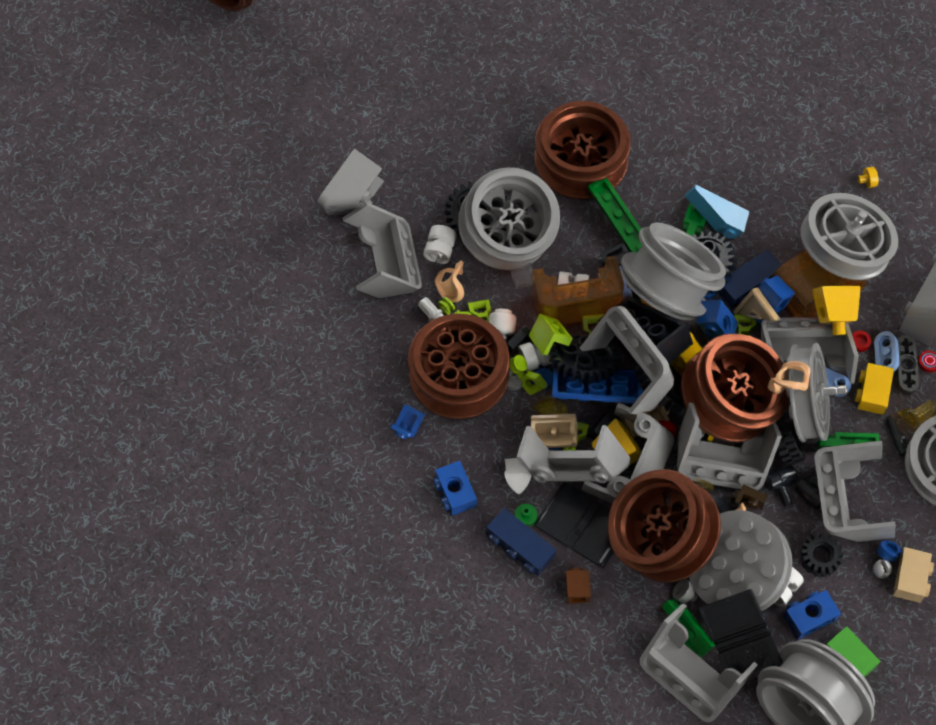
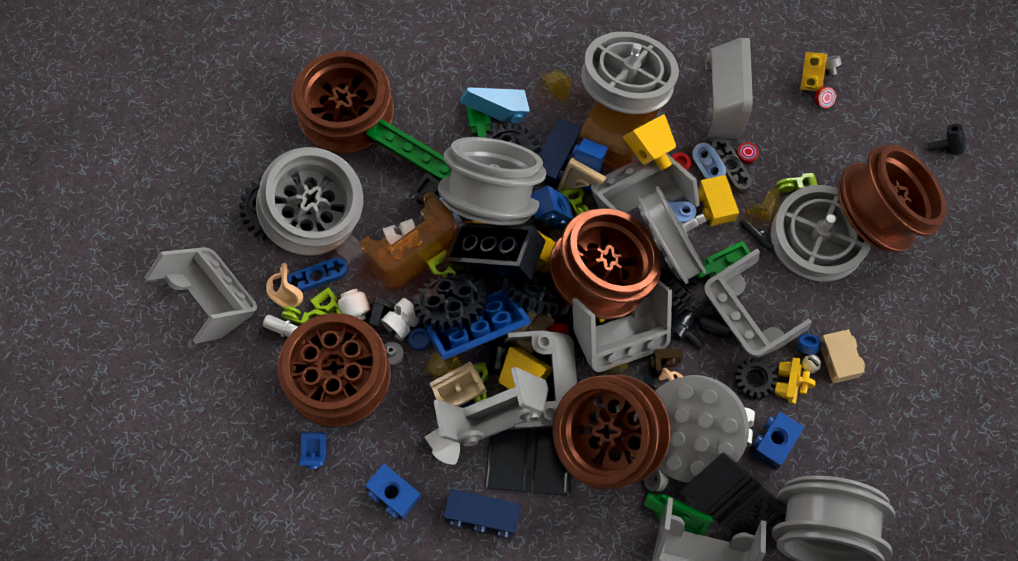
camera: 30 degrees left, 5 degrees up
(351, 186) = (137, 242): light grey windscreen -> none
(440, 244) = (254, 256): white wheel -> none
(490, 280) = (319, 267): none -> blue beam
(518, 365) = (392, 341): lime piece -> none
(526, 513) = (472, 487): green tile -> none
(546, 332) = (404, 294): lime panel -> none
(577, 585) = (557, 527): reddish brown brick -> none
(622, 324) = (505, 272): light grey windscreen -> none
(782, 381) = (647, 239): light nougat piece -> none
(784, 220) = (557, 83): none -> clear yellow tile
(854, 651) = (831, 459): bright green brick -> none
(858, 576) = (793, 371): none -> yellow hips
(869, 177) = (609, 10): yellow tile -> none

